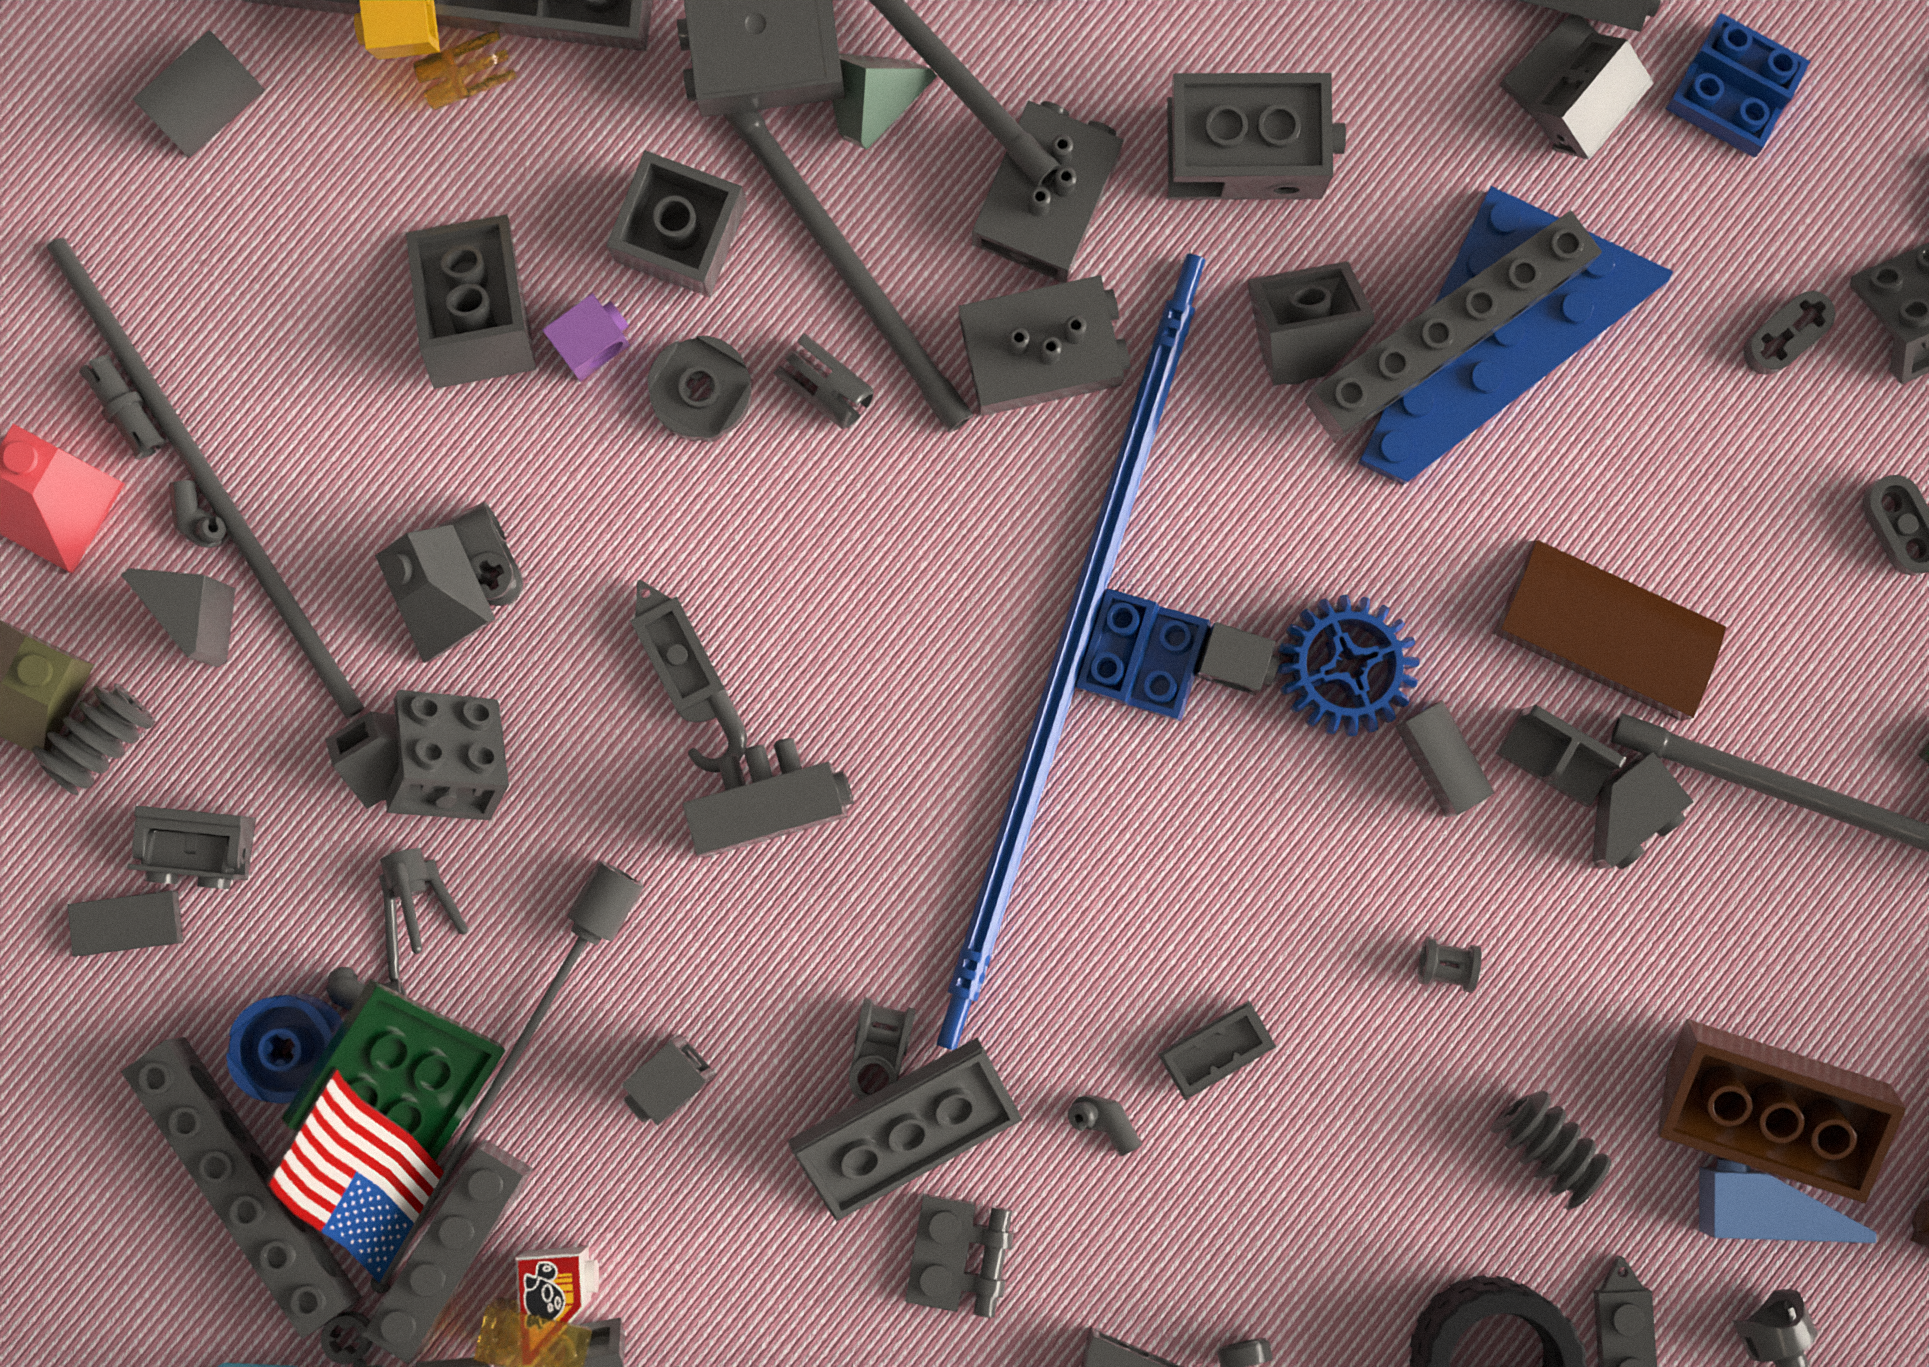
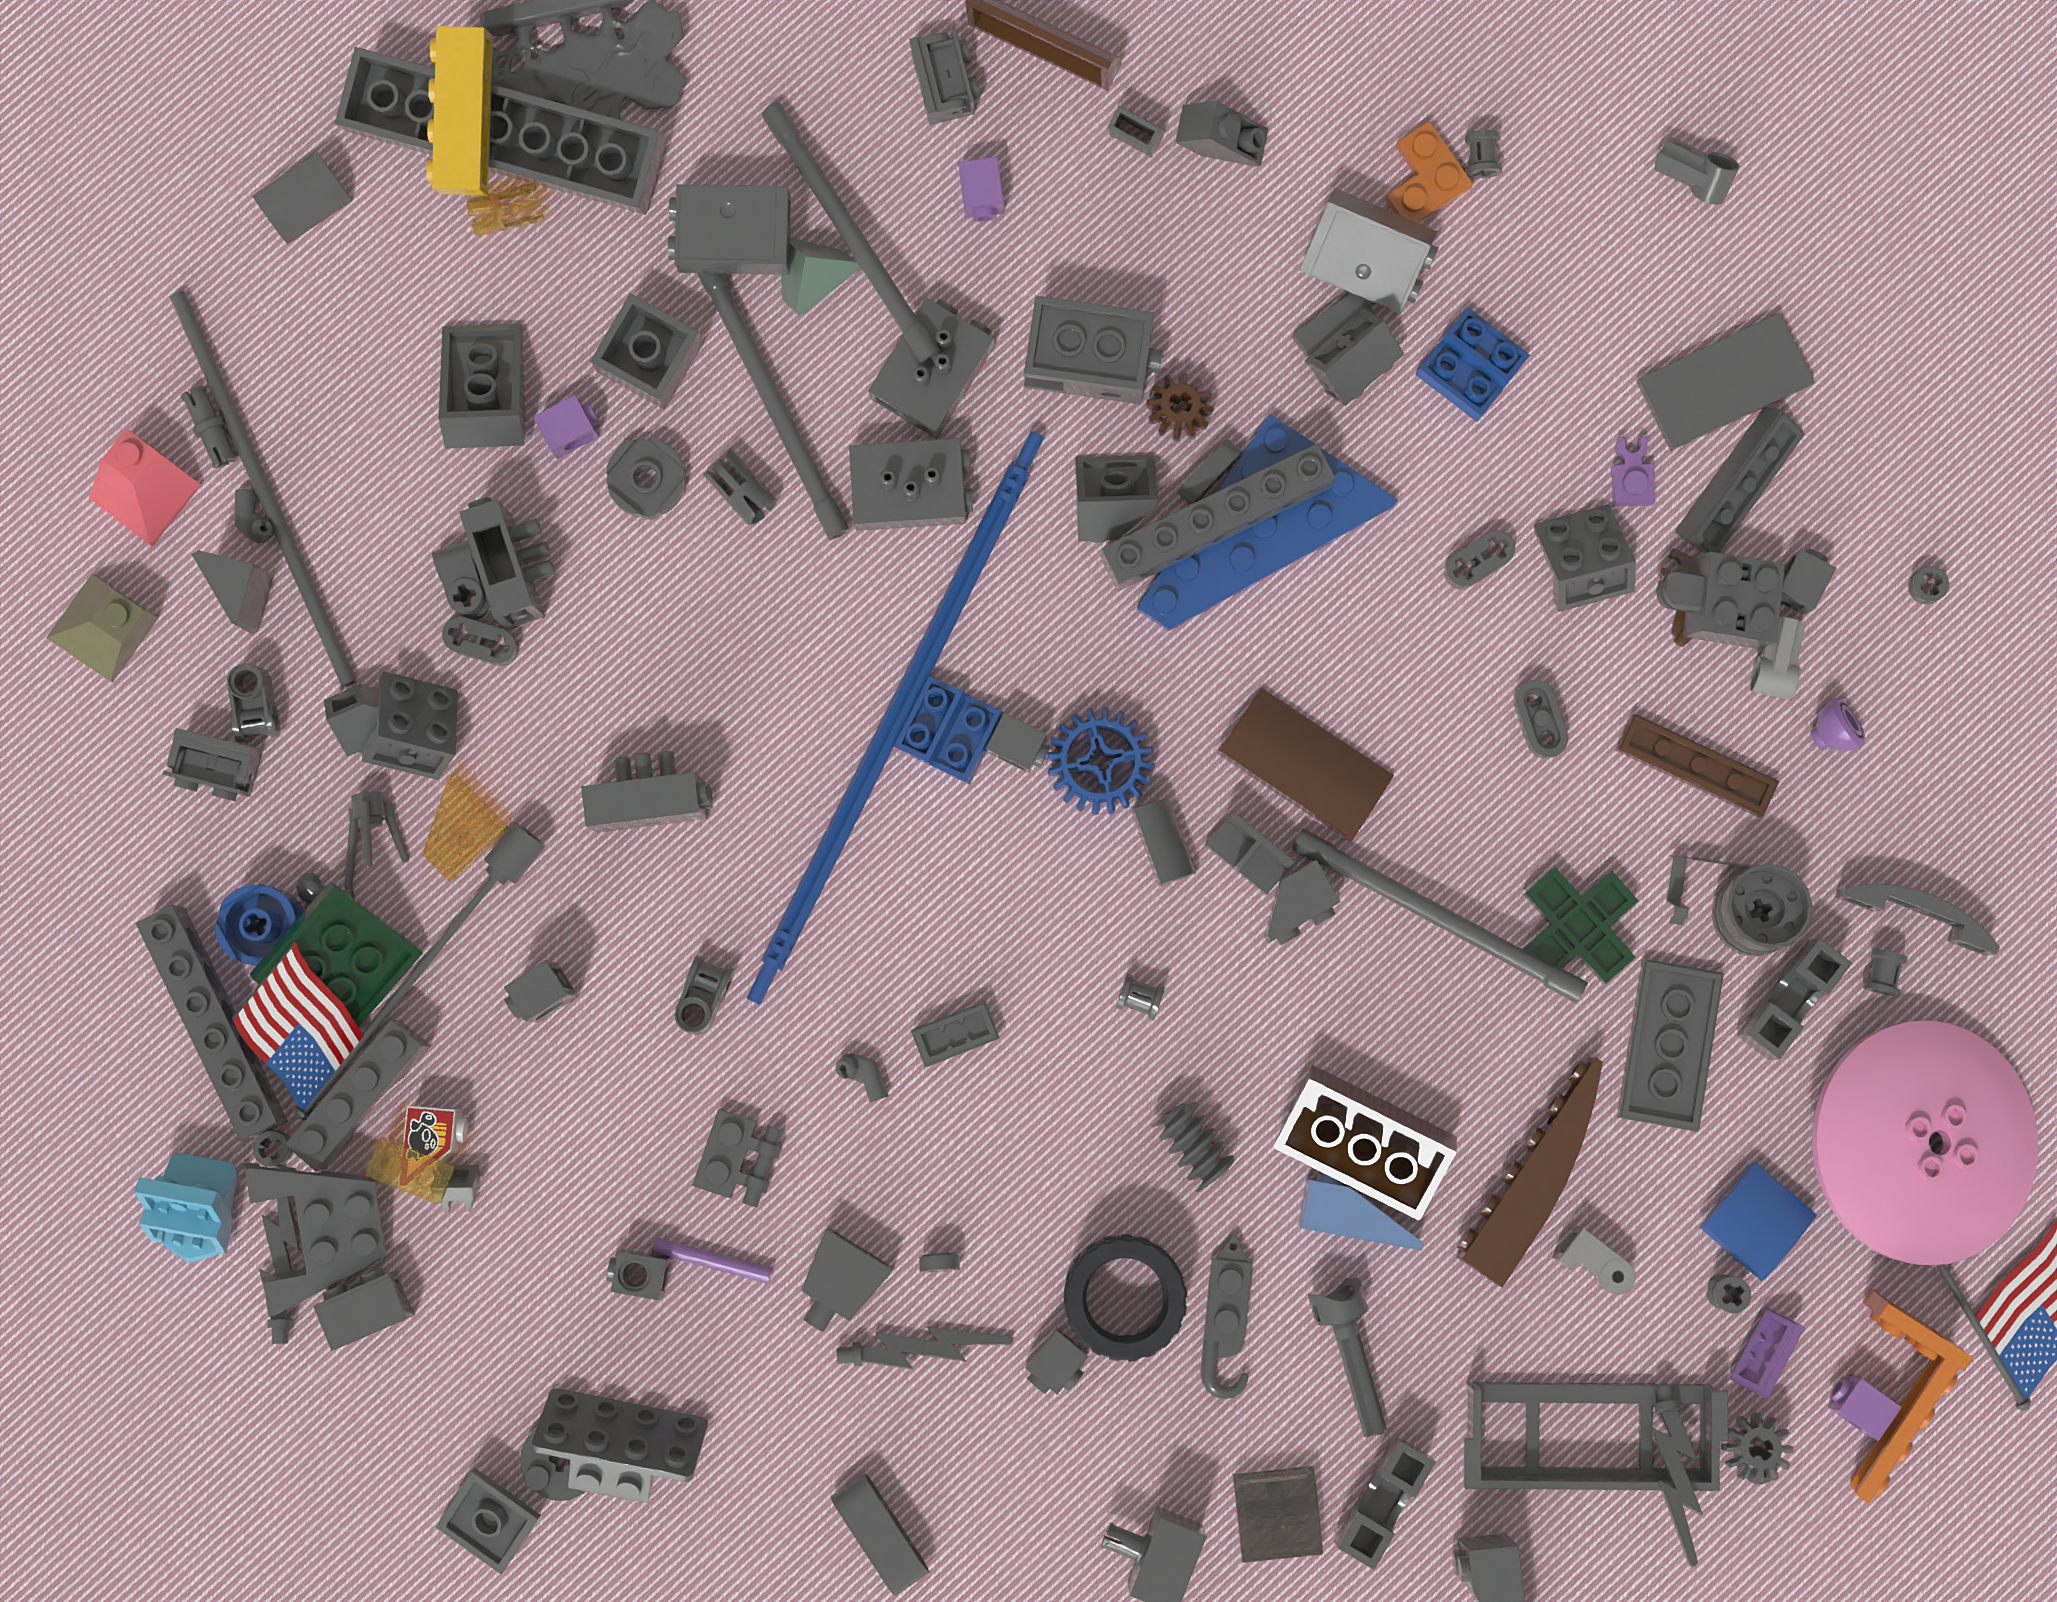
camera: 10 degrees right, 0 degrees up
(93, 738) = (151, 671): dark grey piece -> none
(125, 923) = (153, 815): dark grey tile -> none
(234, 761) = (252, 706): none -> dark grey piece
(435, 589) = (422, 600): dark grey slope -> none
(516, 644) = (482, 632): none -> dark grey beam
(530, 880) = (461, 829): none -> clear yellow wing
(534, 525) = (504, 562): none -> dark grey piece
(686, 670) = (602, 688): dark grey plate -> none
(905, 1129) = (712, 1056): dark grey tile -> none
(1391, 205) = (1183, 420): none -> reddish brown gear
(1427, 272) = (1210, 472): none -> dark grey beam

